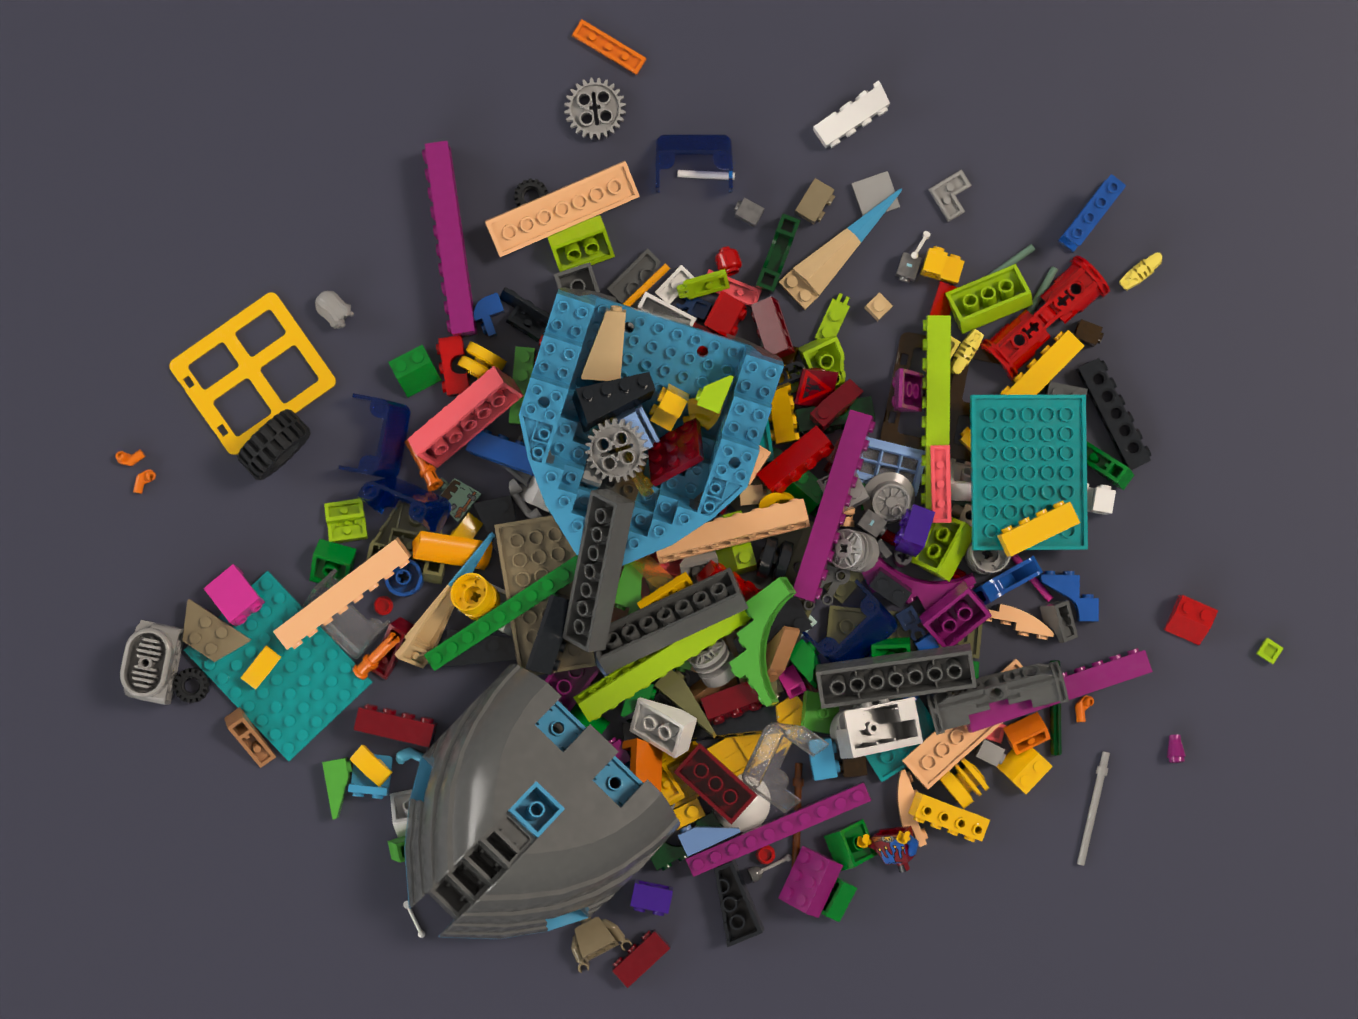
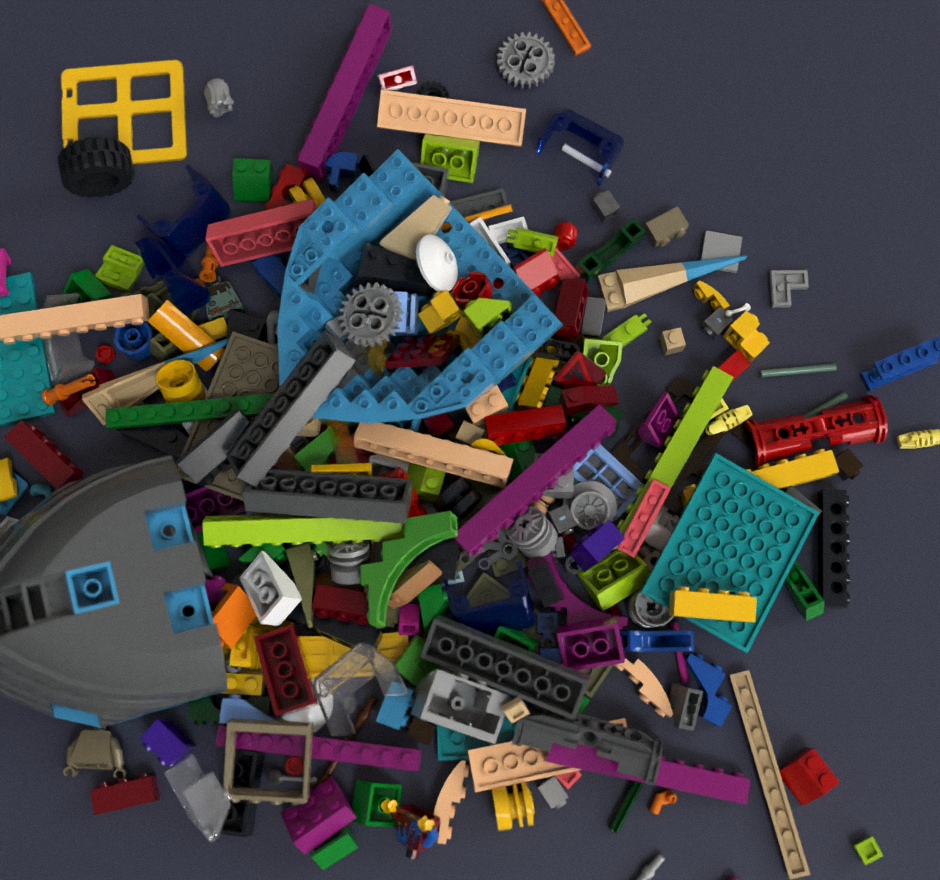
camera: 30 degrees right, 10 degrees down
(485, 193) = (397, 78): none -> slope
(644, 369) = (436, 263): none -> white dish
(687, 375) = (472, 288): none -> red cylinder
(710, 925) = (200, 796): none -> clear windscreen
(734, 834) = (257, 795): none -> dark tan window
(796, 323) = (593, 316): none -> light grey slope
(852, 116) = (738, 175): white wedge -> none
(883, 244) = (706, 293): none -> yellow slope
(924, 706) = (515, 709): none -> tan tile
(948, 816) = (481, 830): yellow brick -> none
(989, 298) = (774, 387): lime slope -> none
(1024, 769) = (577, 824): yellow slope -> none
(1026, 733) = (597, 794): orange brick -> none
(1100, 499) = (782, 617): white brick -> none
(1158, 634) = (769, 775): none -> tan plate

